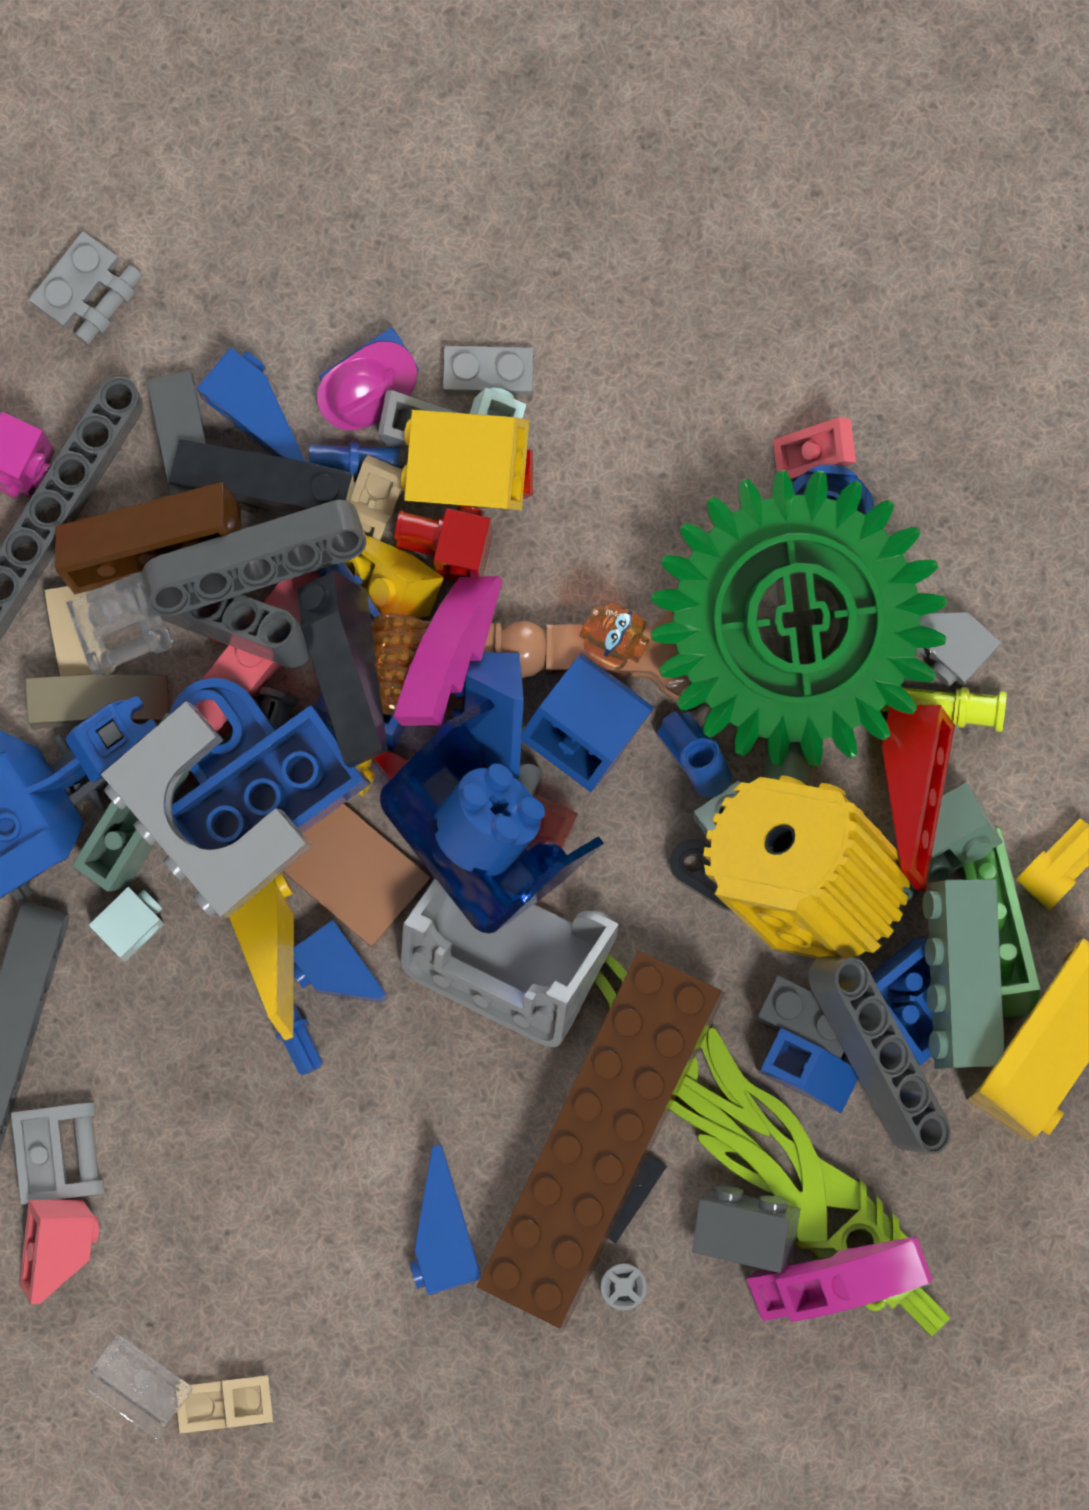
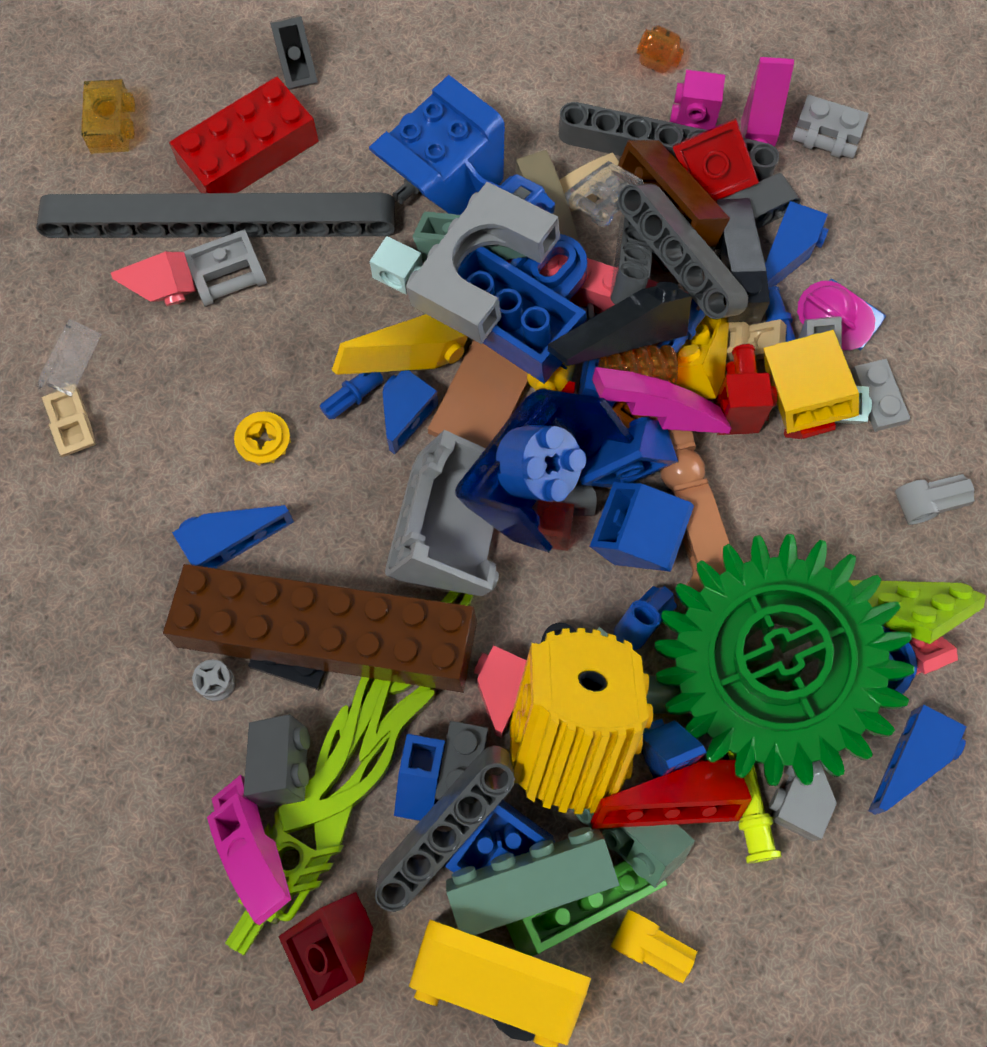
camera: 70 degrees right, 10 degrees down
(56, 373) = (767, 100): none -> dark pink slope
(115, 463) = (718, 160): none -> red plate
(310, 1139) = (252, 427): none -> yellow gear
(614, 635) = (716, 522): clear orange head -> none
(642, 371) = (925, 500): none -> light grey piece
(727, 946) = (499, 685): none -> coral slope
(771, 433) = (927, 607): none -> lime plate
(862, 774) = (669, 748): none -> blue slope
(936, 494) = (923, 750): none -> blue slope
(970, 1221) = (330, 949): none -> dark red slope

